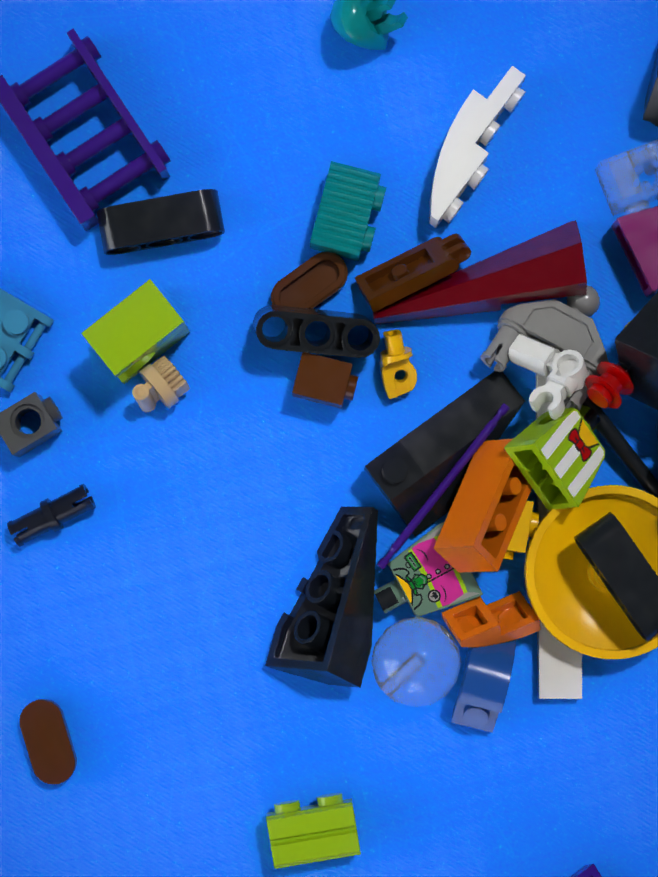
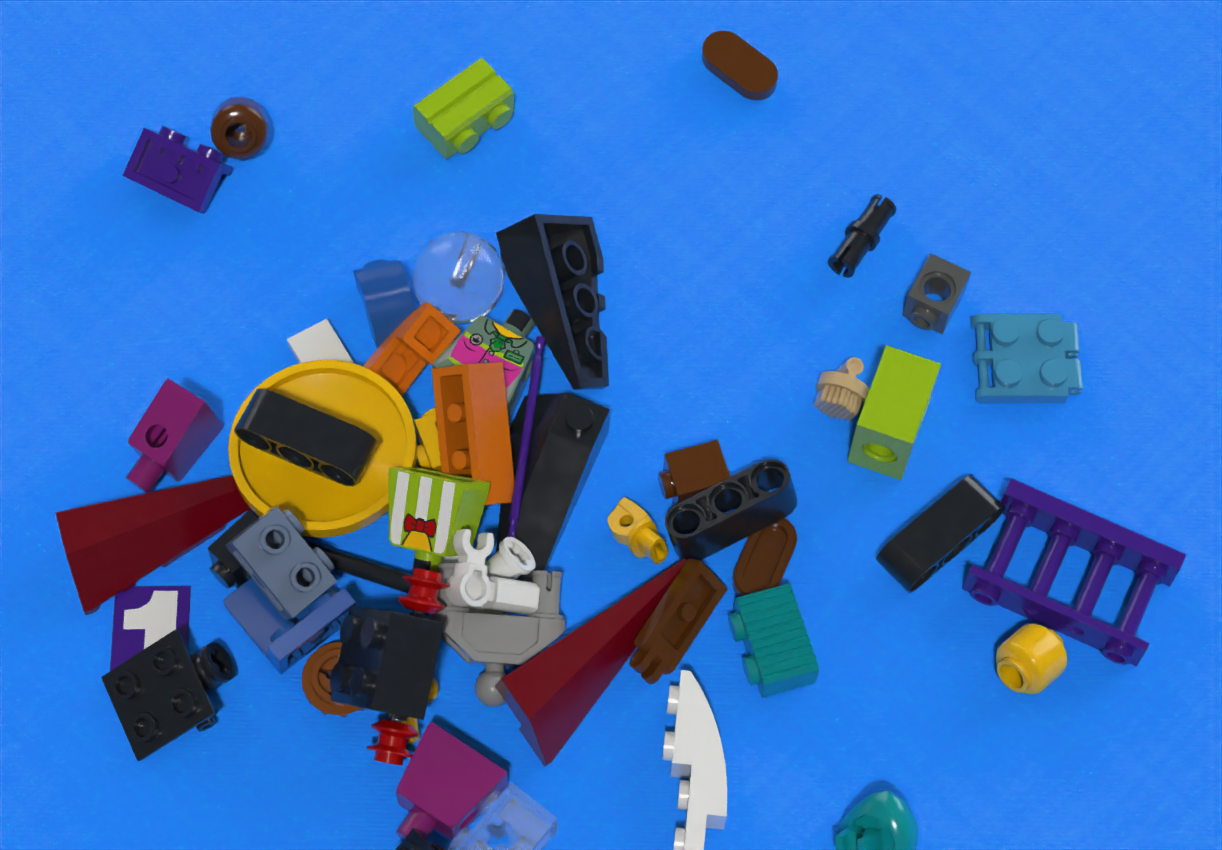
camera: 145 degrees right, 20 degrees down
(160, 81) = (1031, 659): none -> yellow head
(515, 387) = (511, 560): none -> white bush

